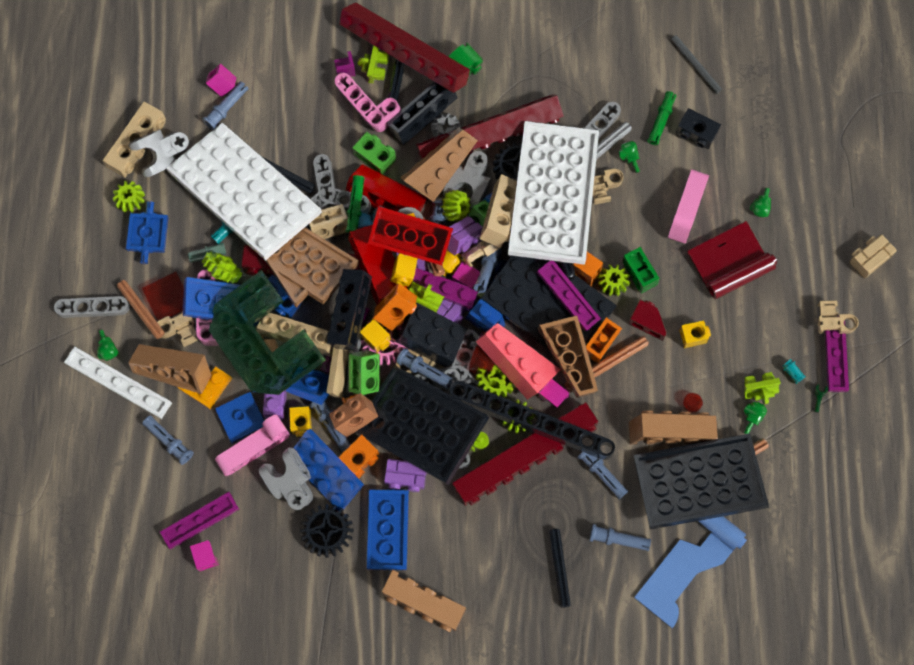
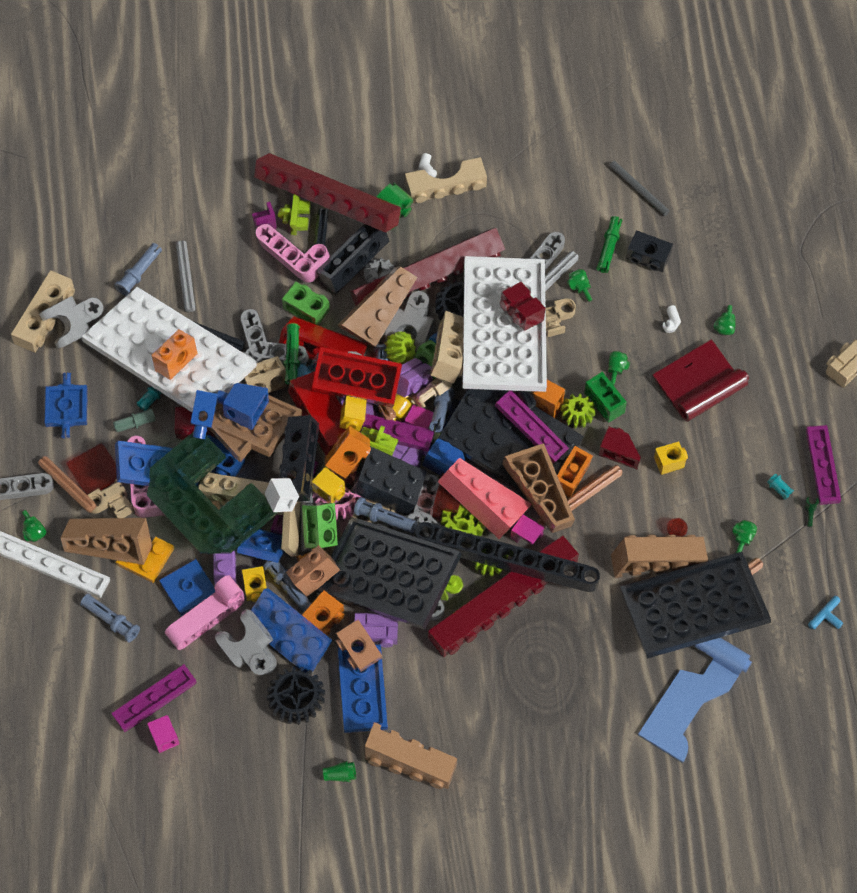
camera: 10 degrees left, 10 degrees down
(131, 201) = (42, 370): lime gear -> none
(221, 80) = (131, 243): dark pink panel -> none
(222, 267) = (153, 432): lime gear -> none
(246, 197) = (174, 354): none -> orange brick
(267, 115) = (185, 276): none -> light grey axle
(268, 250) = (206, 403): none -> blue torso
(305, 251) = (244, 403): none -> blue torso
(329, 345) = (281, 495): none -> white panel
(361, 607) = (340, 772): none -> green cone
(397, 499) = (356, 633): none -> nougat brick
(496, 47) = (424, 187): none -> tan arch
(498, 27) = (425, 165): none -> white arm
(560, 569) = (554, 711): black axle -> none
(571, 178) = (522, 306): none -> dark red brick
(596, 465) = (583, 598): sand blue pin -> none
(610, 536) = (604, 673): sand blue pin -> none
(655, 236) = (617, 363): none -> green piece
(688, 206) = (648, 330): bright pink beam -> none
(713, 198) = (673, 321): none -> white arm
(763, 389) = (748, 507): lime hips -> none
(821, 498) = (825, 613): none -> dark azure piece
(831, 321) = (812, 431): tan piece -> none

